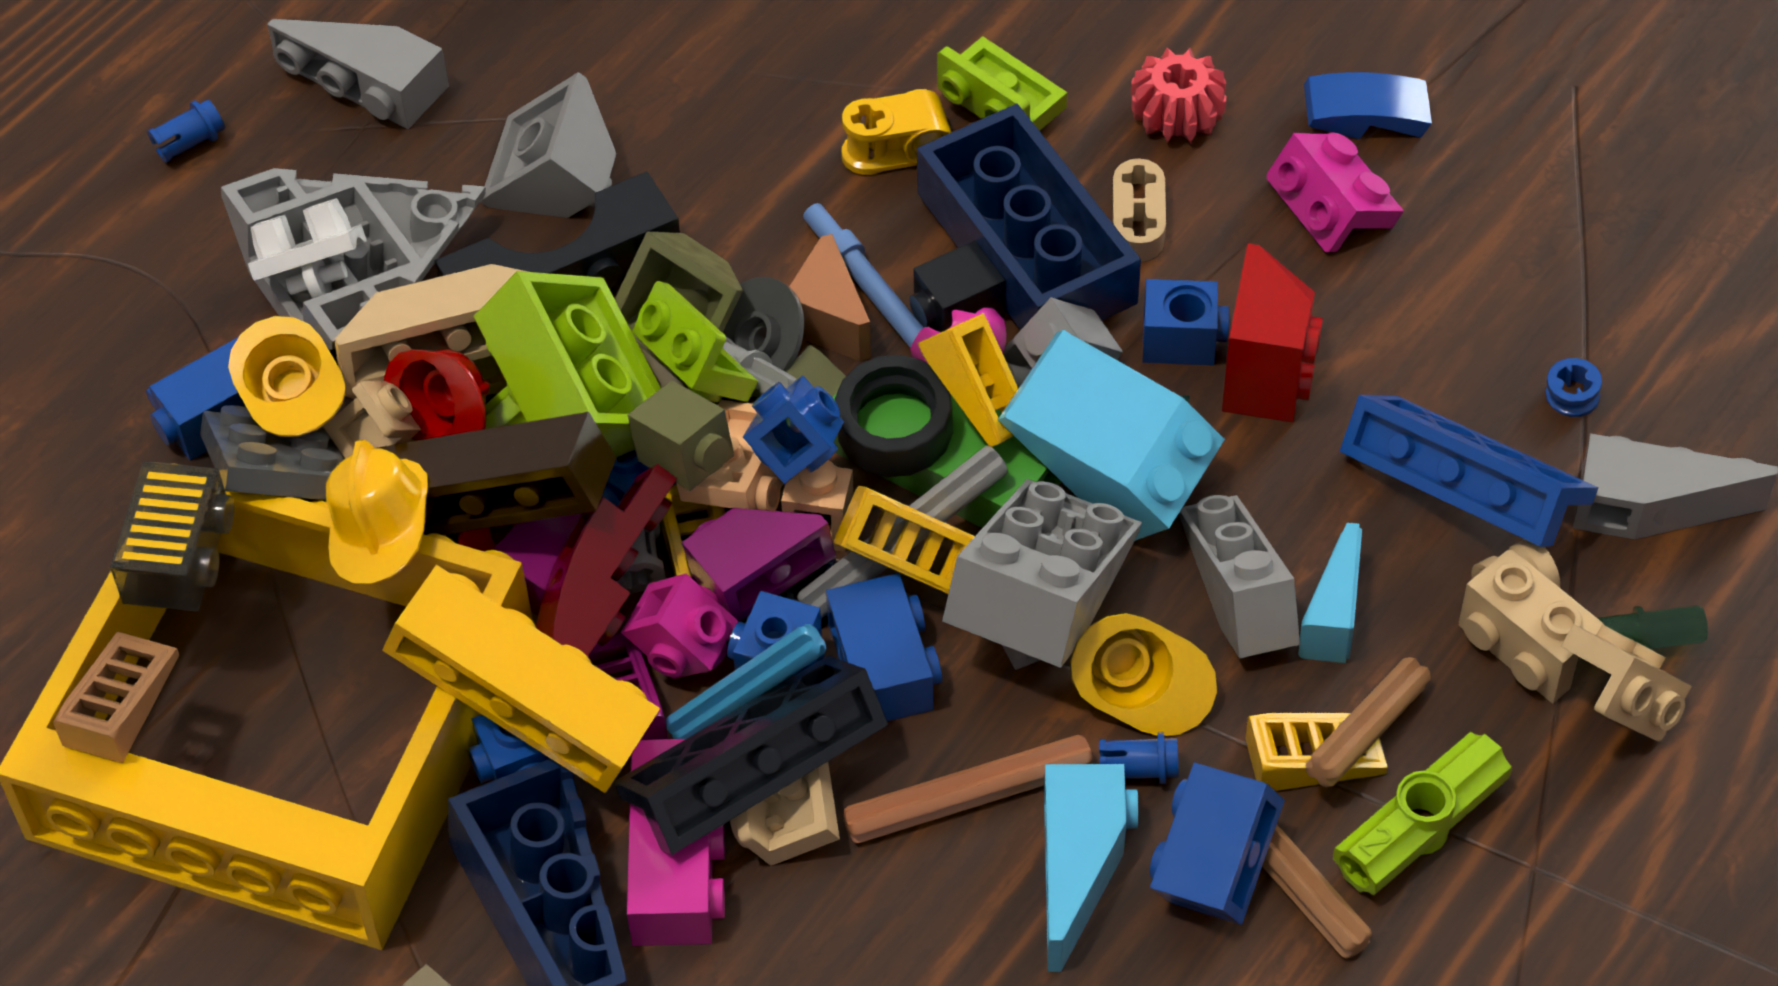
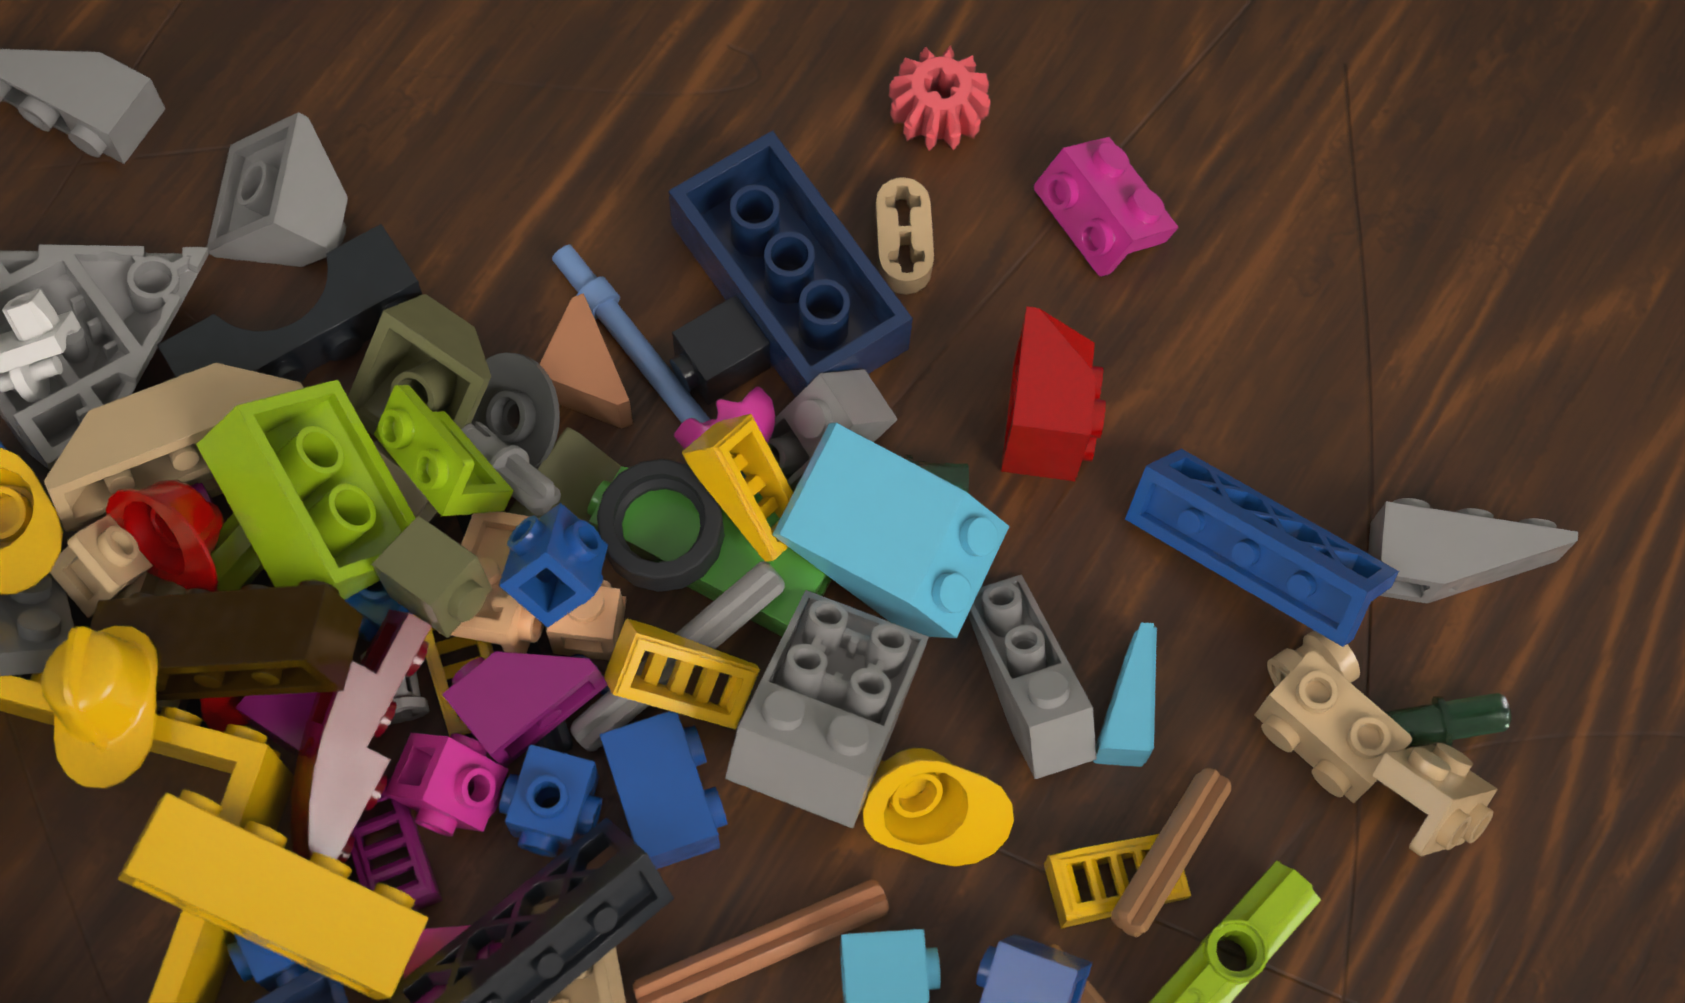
camera: 10 degrees left, 15 degrees up
(748, 681) = (521, 857): dark azure axle -> none
(892, 129) = (648, 151): yellow piece -> none
(991, 80) = (750, 94): lime bracket -> none
(1143, 757) = (943, 903): blue pin -> none
(1182, 322) = (943, 397): blue brick -> none
(1355, 100) = (1134, 95): blue slope -> none
(1579, 371) = (1378, 428): blue bush -> none

